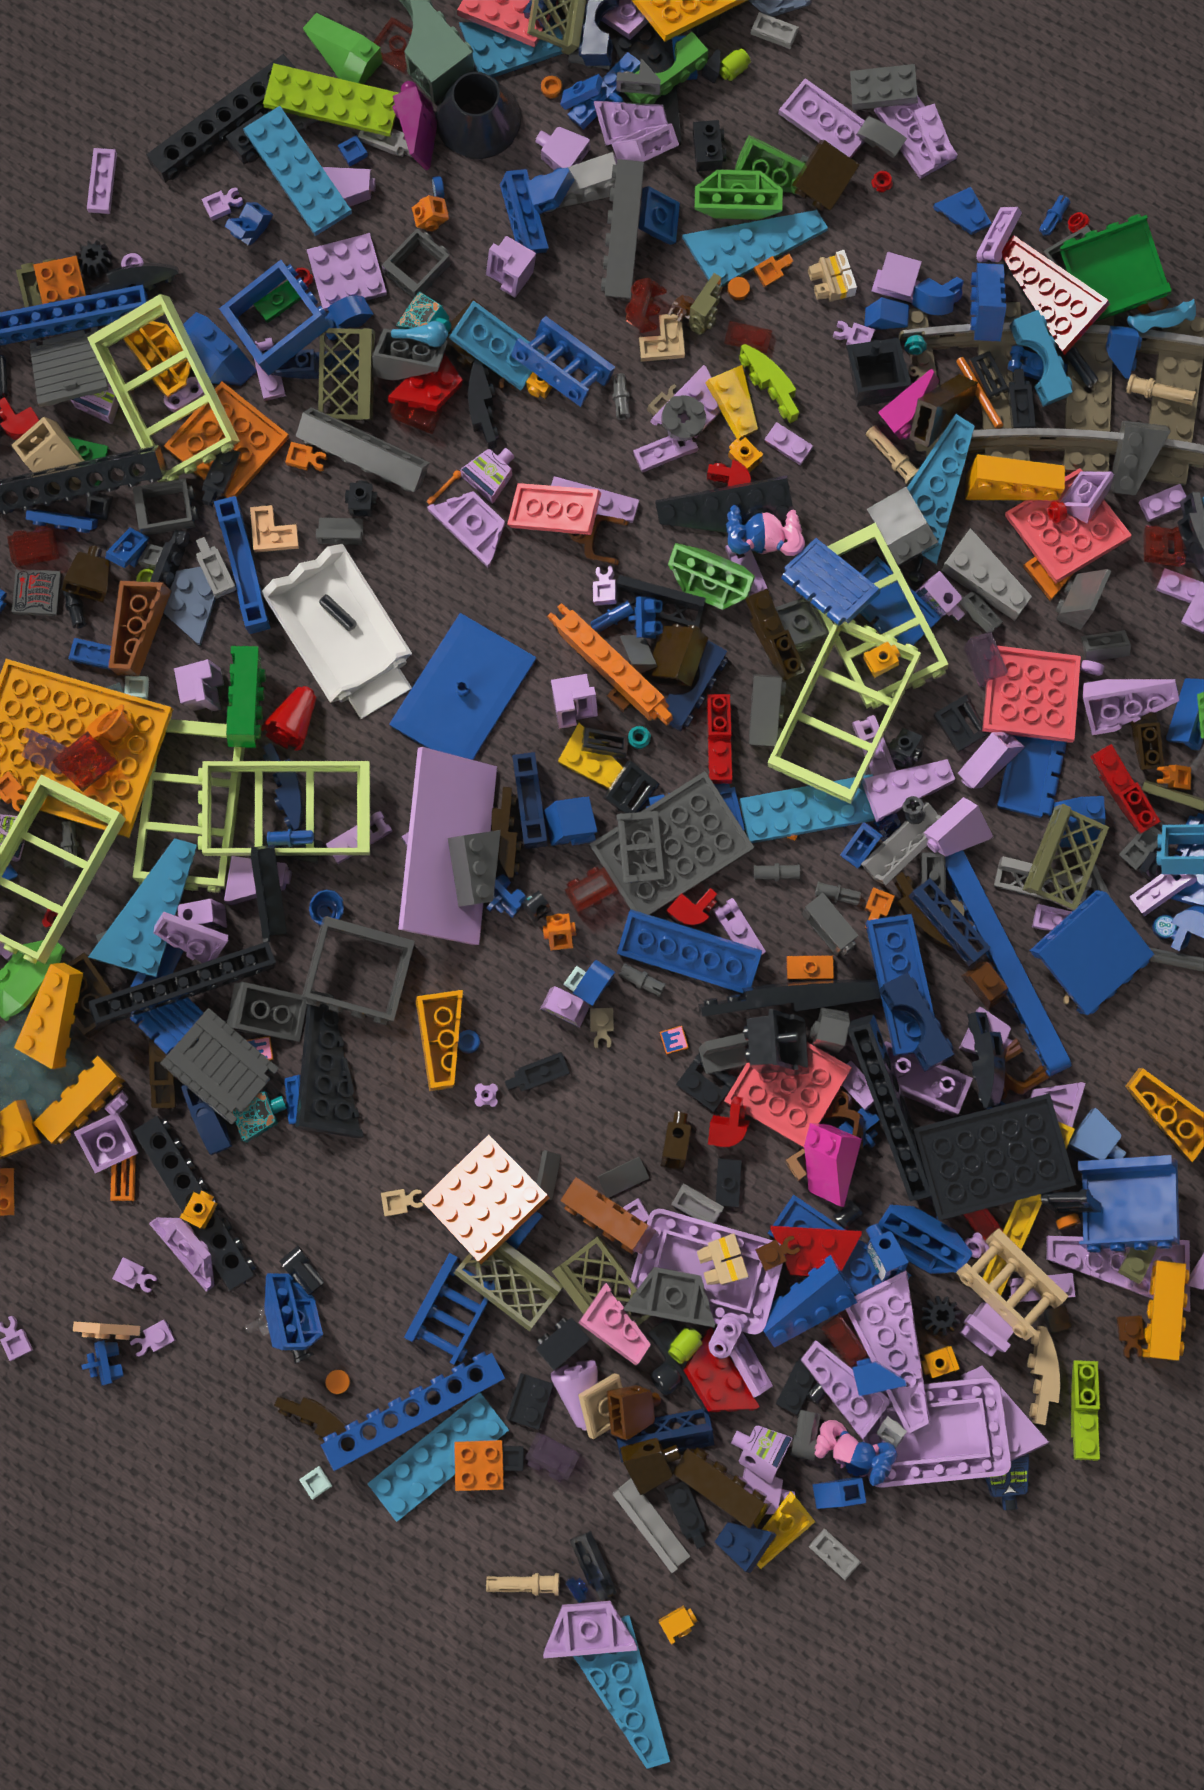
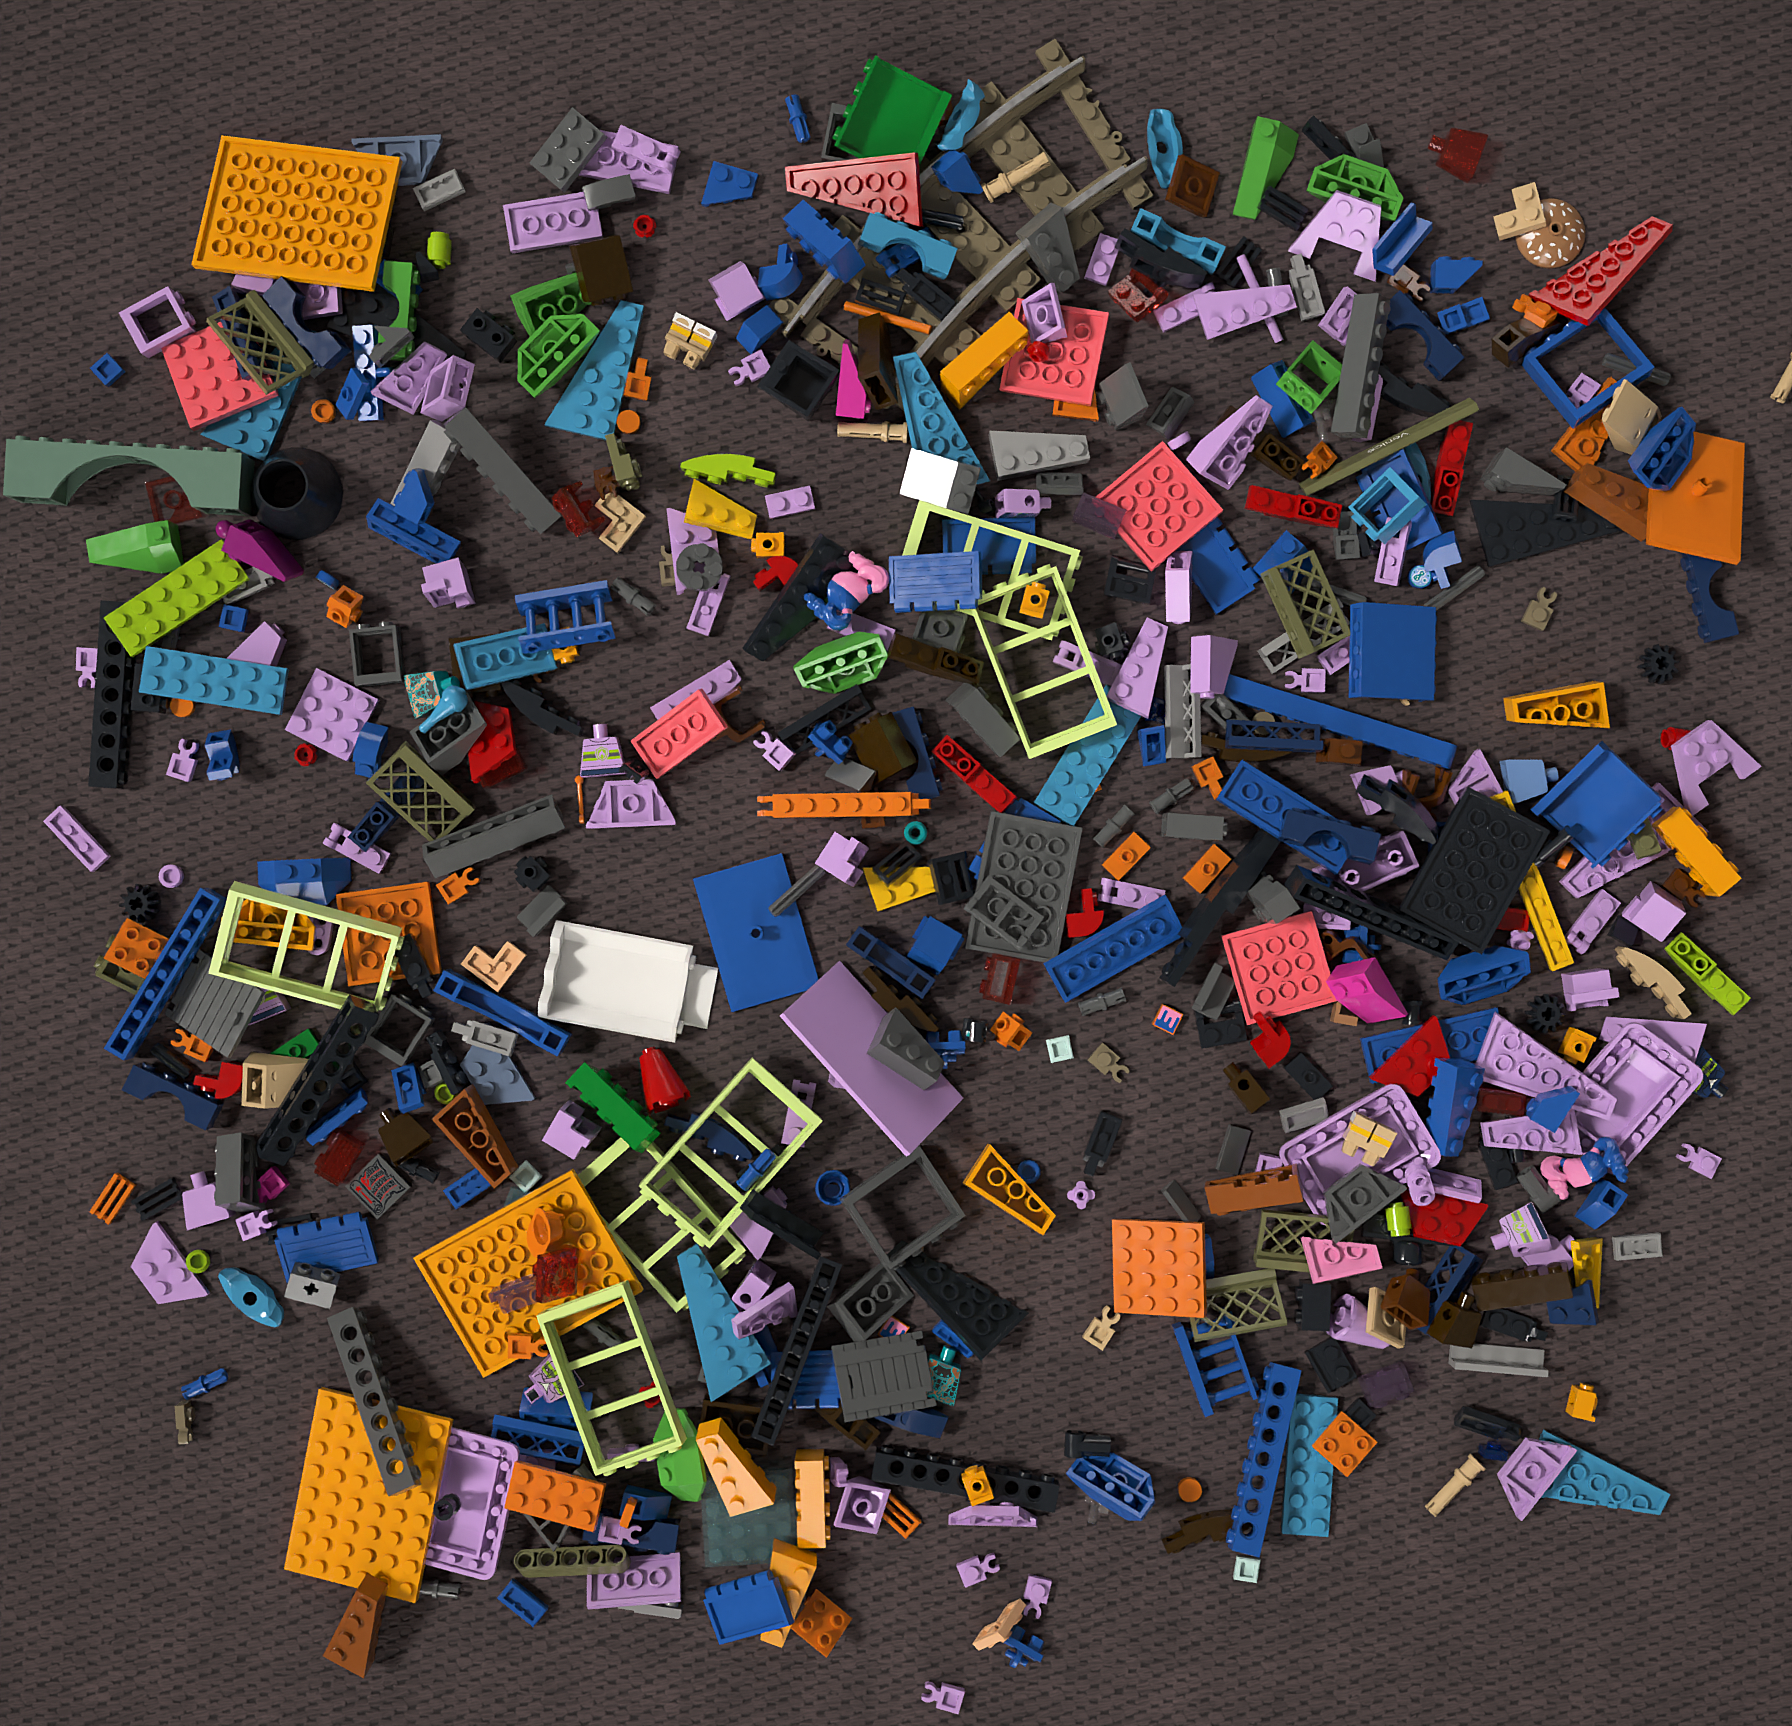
camera: 50 degrees left, 10 degrees up
(25, 381) = (194, 1046): none -> orange plate
(141, 274) = (187, 879): black slope -> none
(229, 83) = (86, 662): none -> lavender plate
(259, 171) = (182, 707): none -> orange tile
(277, 301) = (307, 790): green plate -> none
(292, 342) = (360, 810): blue window -> none
(337, 612) = (607, 972): black axle -> none
(499, 499) = (639, 777): none -> black tile
(519, 690) = (796, 890): none -> dark grey axle
(562, 148) = (386, 452): lavender torso -> none
(565, 1006) = (1069, 1078): lavender torso -> none
(594, 982) = (1075, 1042): blue brick -> none
(612, 617) = (803, 766): blue axle -> none
(659, 215) = (512, 429): blue plate -> none
(741, 334) = (675, 451): clear red plate -> none
(763, 901) = (1125, 856): none -> orange plate
(772, 1254) = (1394, 1097): reddish brown plate -> none
(777, 1043) = (1247, 951): black piece -> none
(885, 1253) = (1478, 1019): blue torso -> none
(891, 1432) = (1595, 1128): light grey plate -> none
(909, 814) = (1160, 686): black bush -> none
(915, 345) = (805, 331): teal plate -> none
(945, 1544) = (1701, 1160): none -> lavender plate
(998, 234) = (773, 178): lavender plate -> none
(1015, 916) = (1310, 681): none -> lavender plate
(1033, 1278) = (1585, 925): tan fence -> none
(1078, 221) = (821, 105): red plate -> none
(1093, 1327) = (1655, 911): none -> lavender plate

